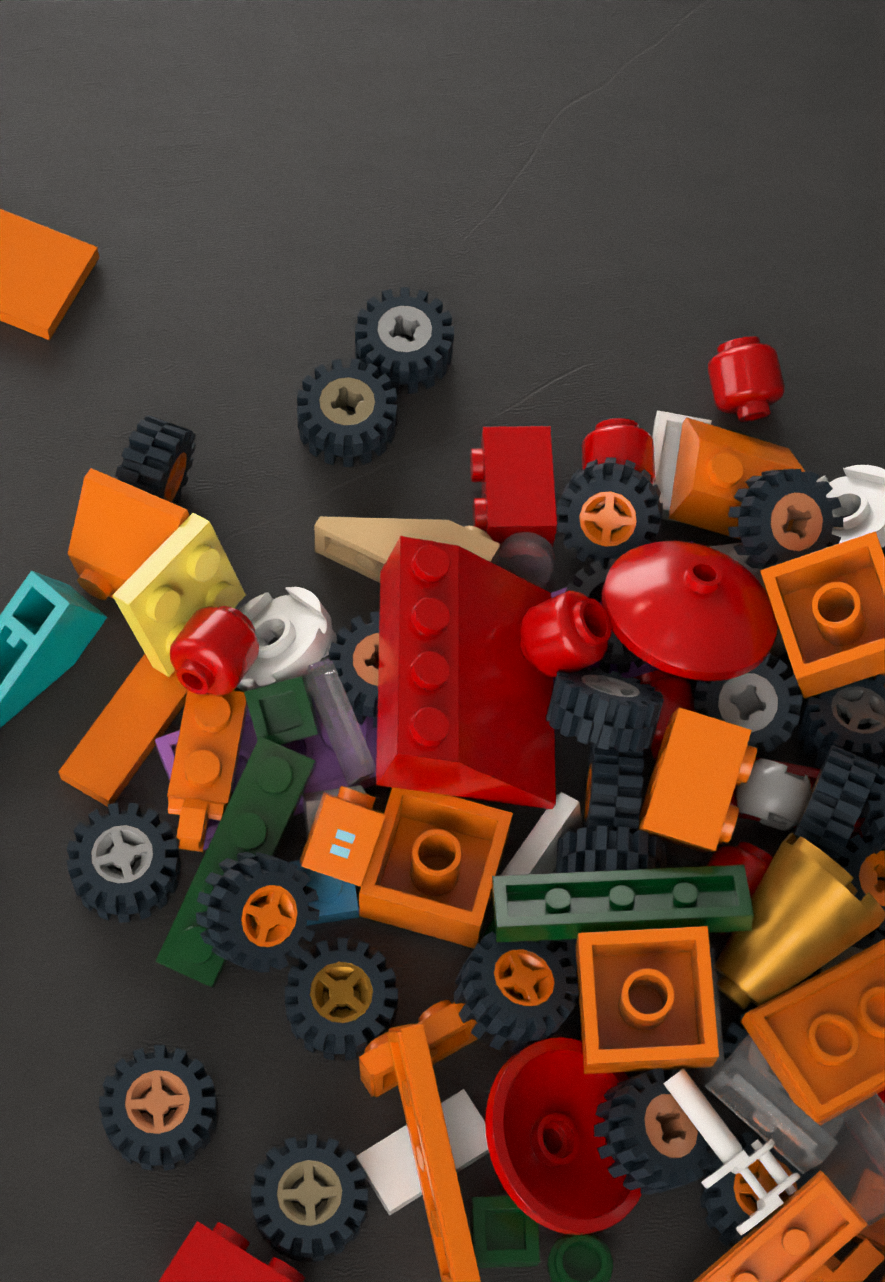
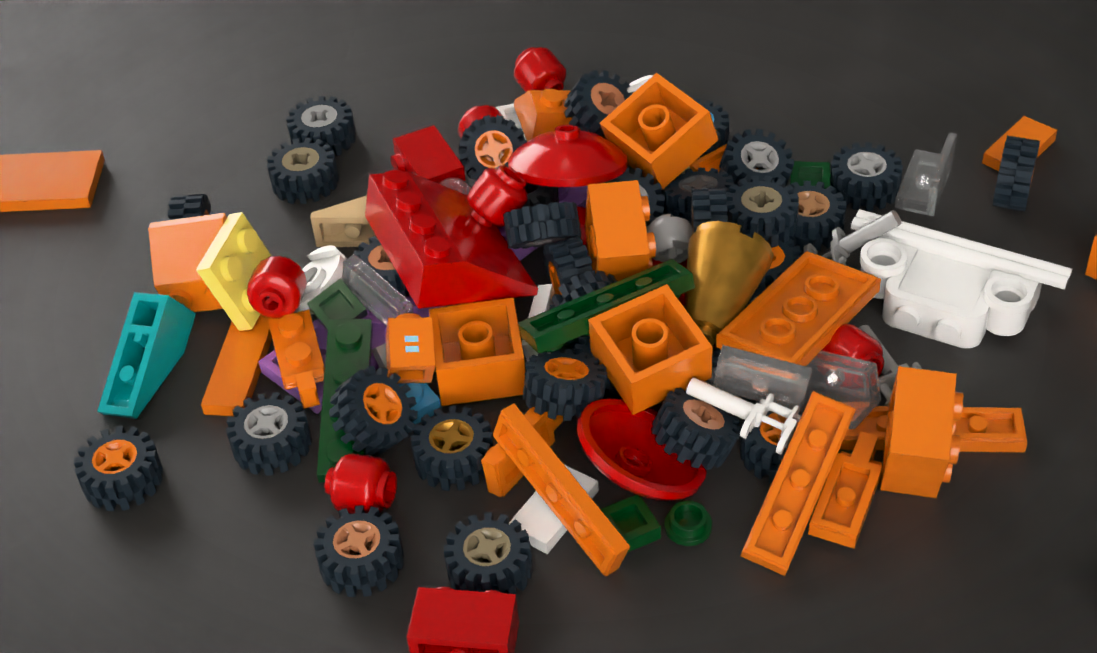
camera: 15 degrees left, 20 degrees down
(200, 1011) = (359, 482): none -> red head

